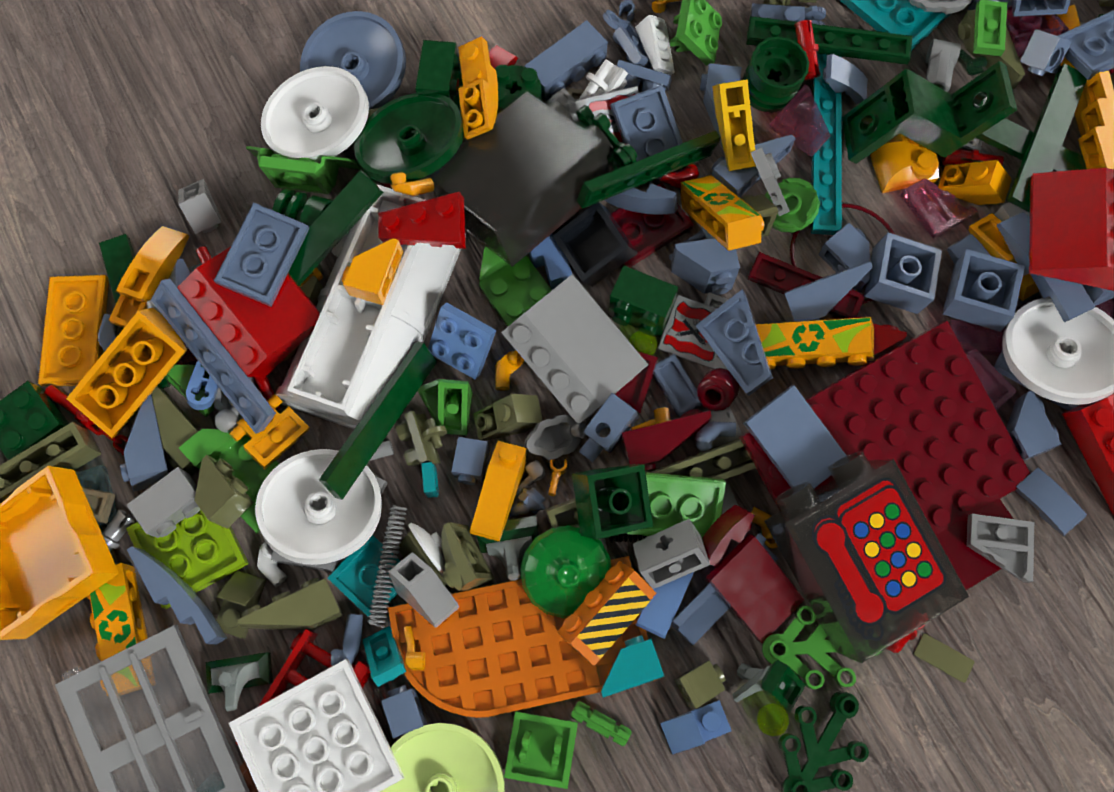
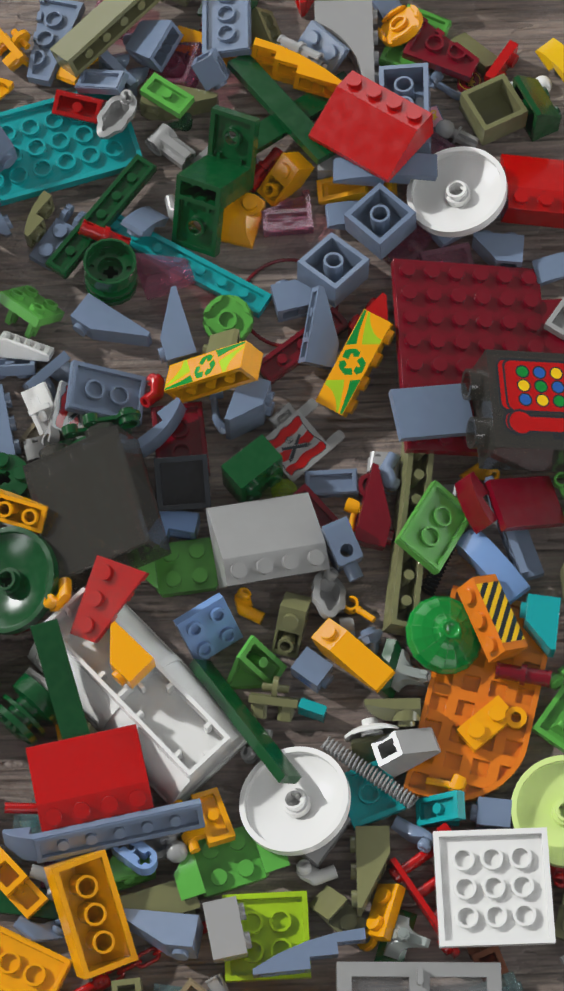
camera: 65 degrees left, 5 degrees down
(220, 493) = (243, 878): olive slope -> none
(252, 649) = (383, 914): none -> light orange hinge
(262, 254) = (56, 744): sand blue tile -> none
(497, 663) = (489, 722): none -> light orange hinge
(564, 675) = (523, 674): none -> dark red pin
(612, 501) = (410, 567): dark green slope -> none
(647, 169) = (145, 405): dark green tile -> none
(671, 554) = (471, 546): light grey brick -> none
(717, 389) = (354, 451): dark red head -> none
(735, 123) = (140, 322): yellow slope -> none
(737, 343) = (325, 417): sand blue wing -> none
(769, 173) = (206, 318): light grey wing -> none

